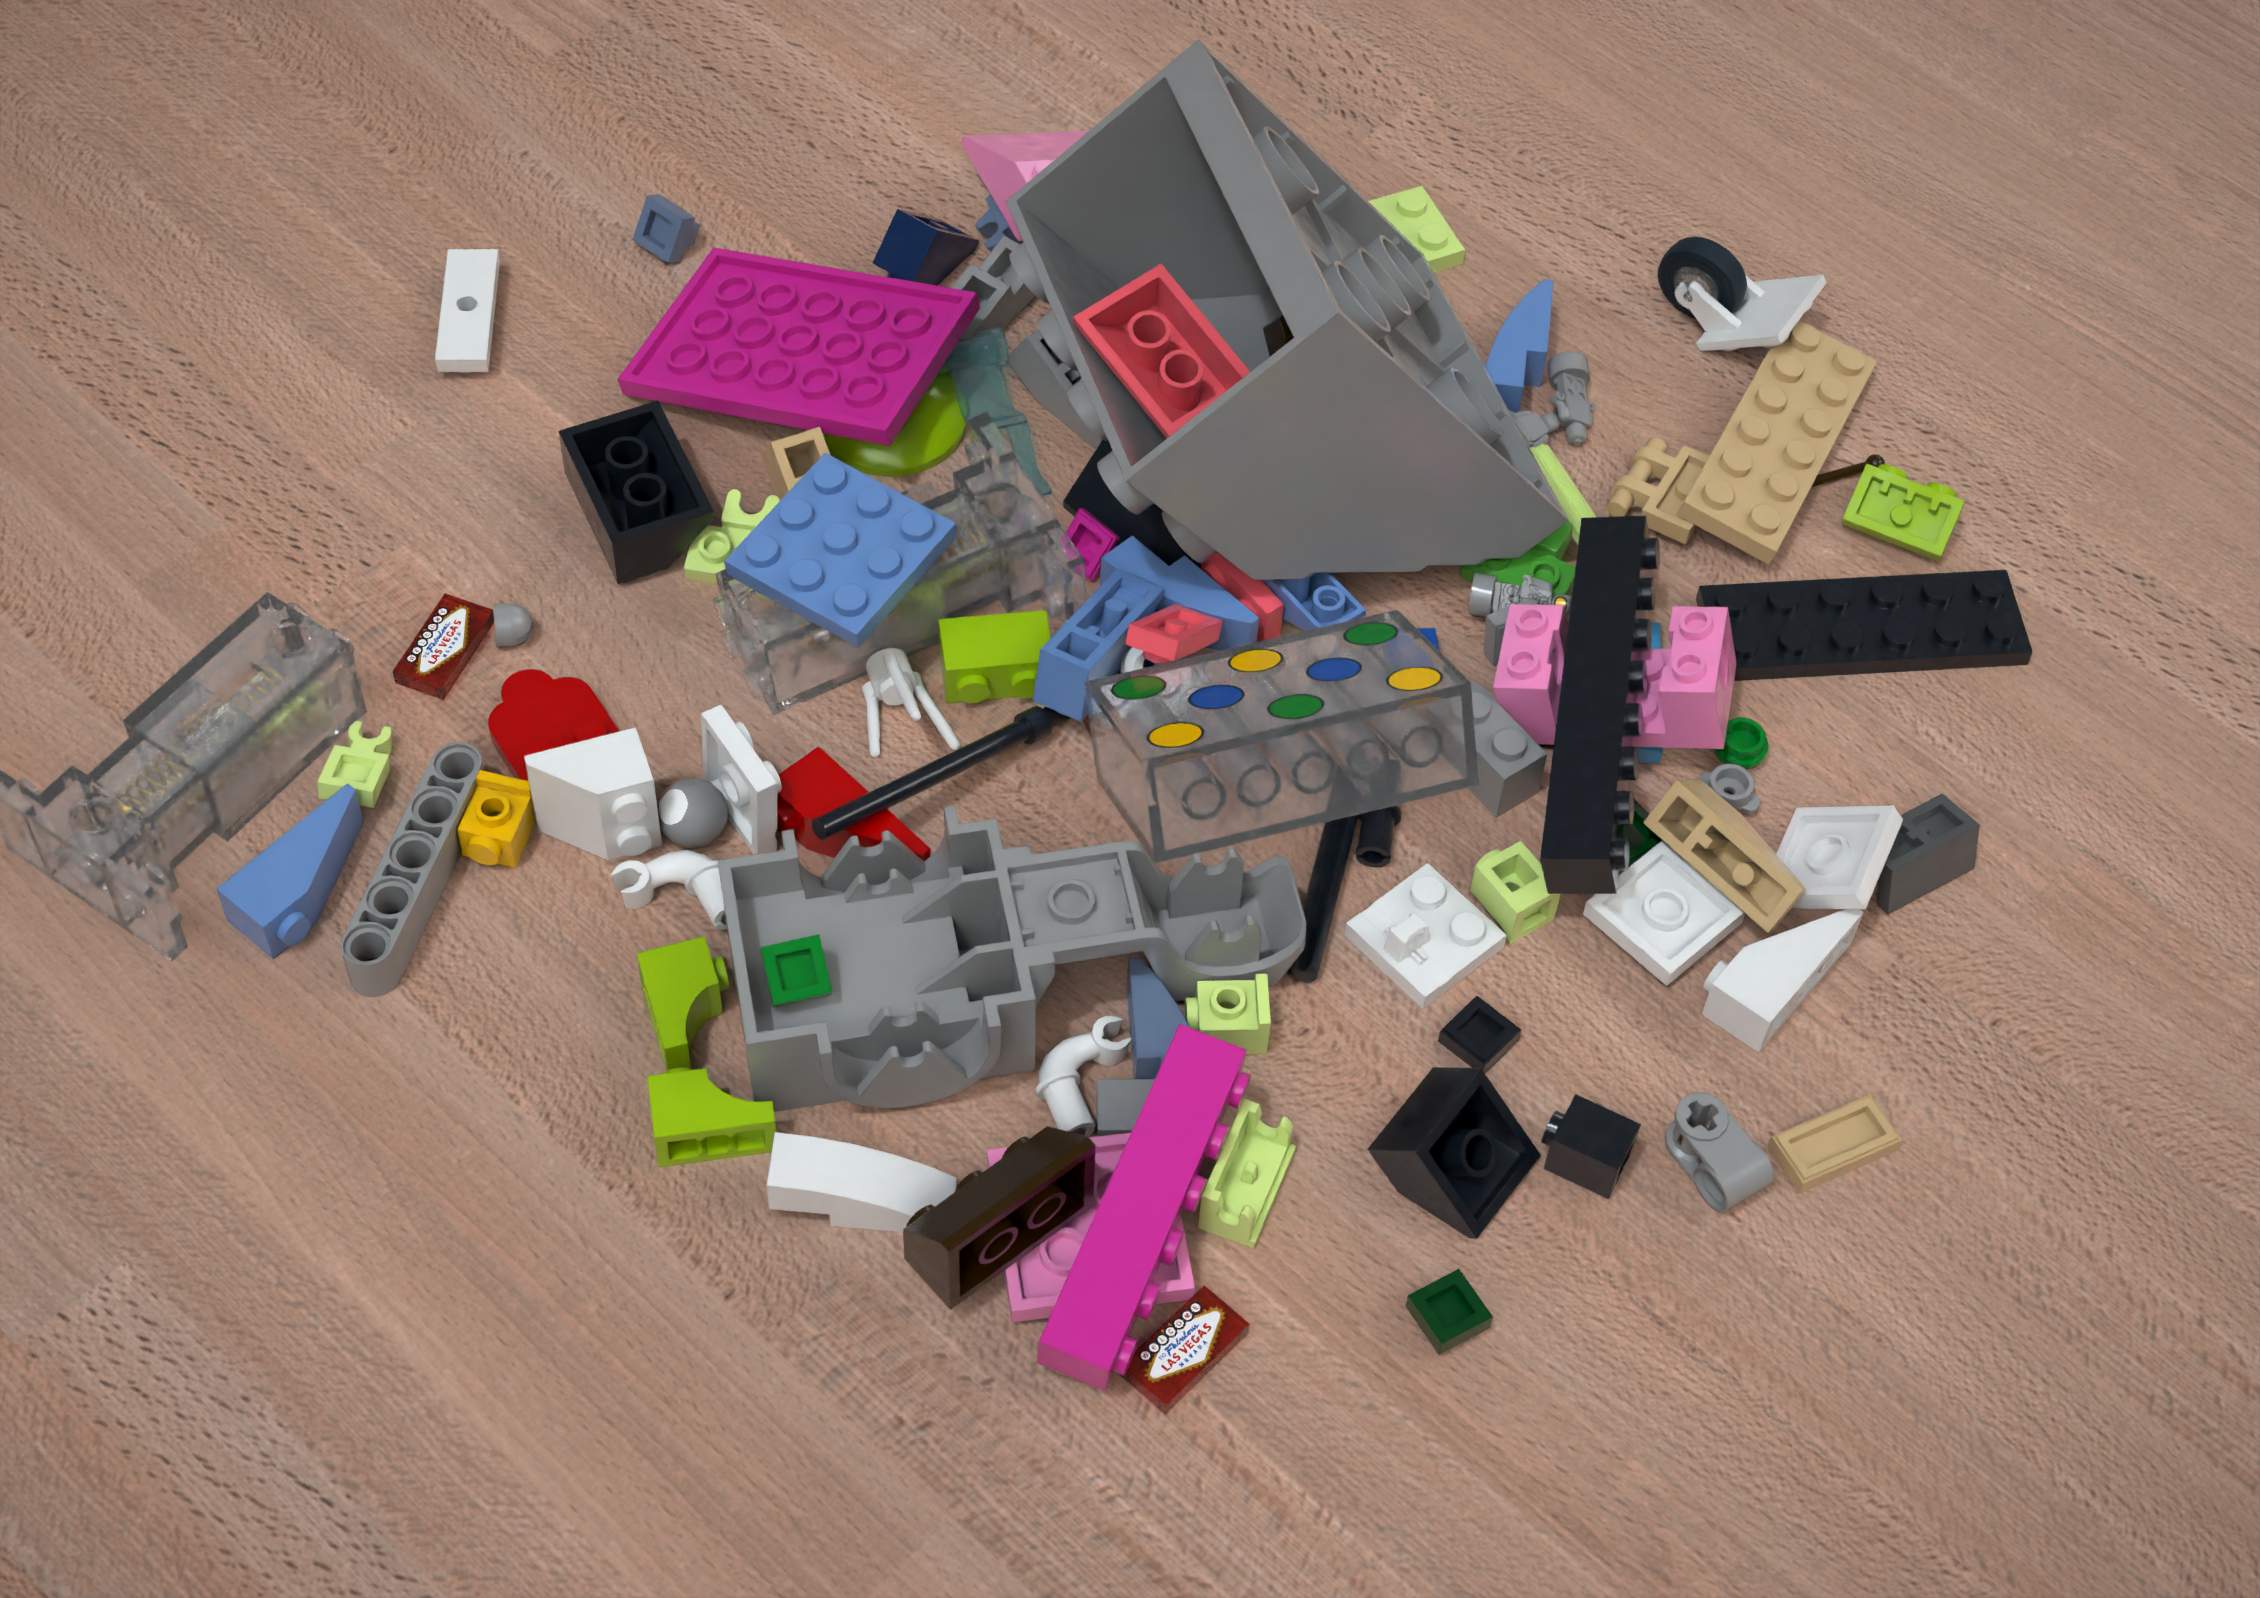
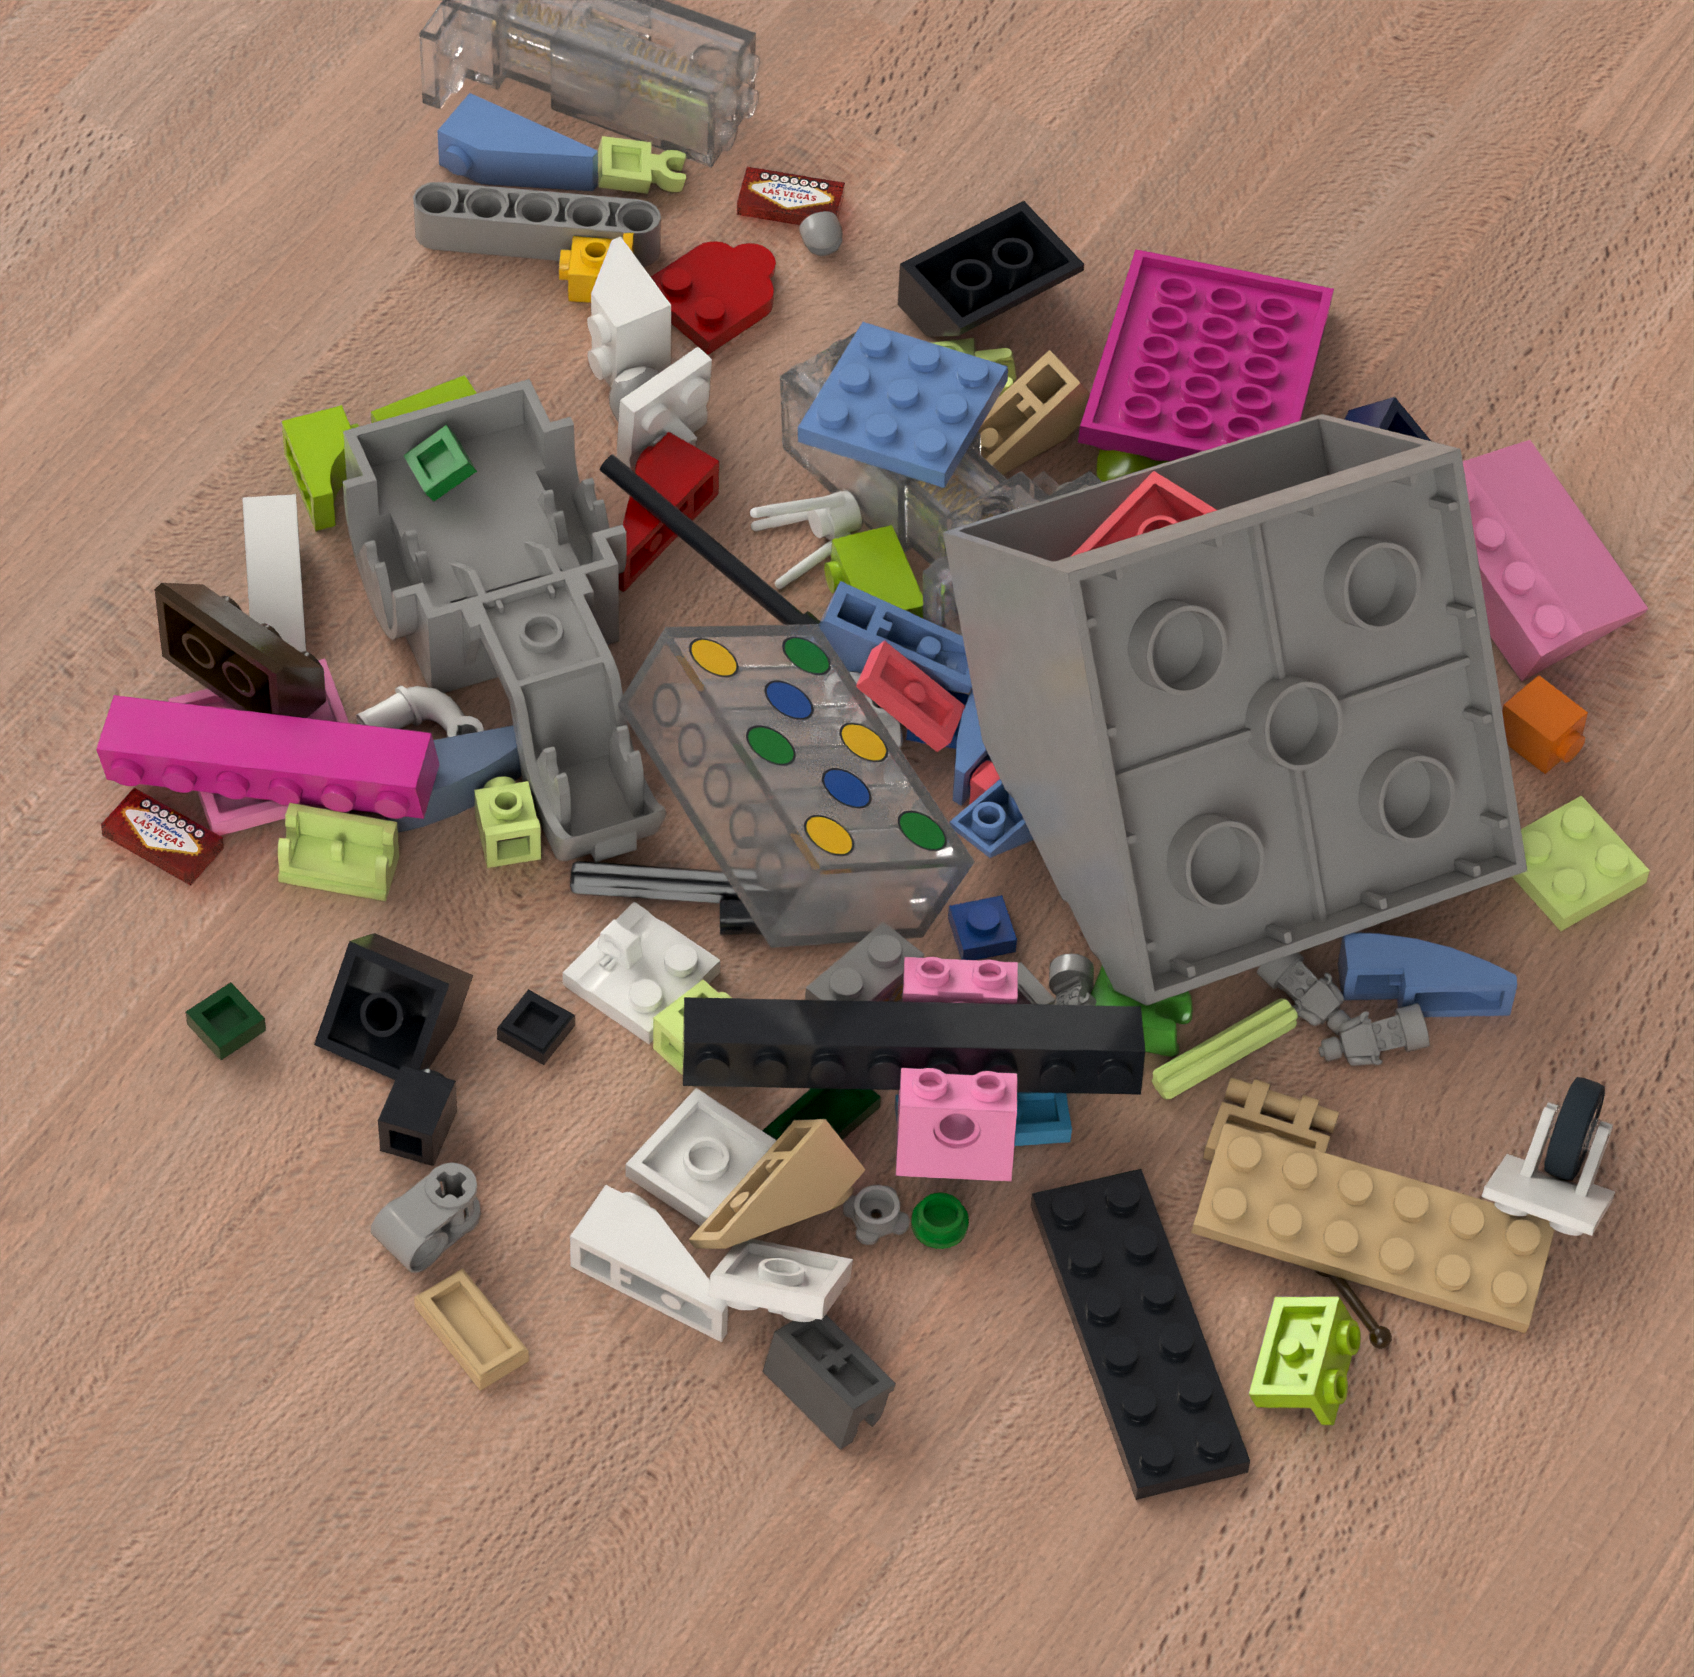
camera: 80 degrees right, 0 degrees up
(467, 310) = (1191, 127): white tile -> none
(665, 229) = (1347, 250): sand blue tile -> none
(686, 867) = (582, 400): white piece -> none

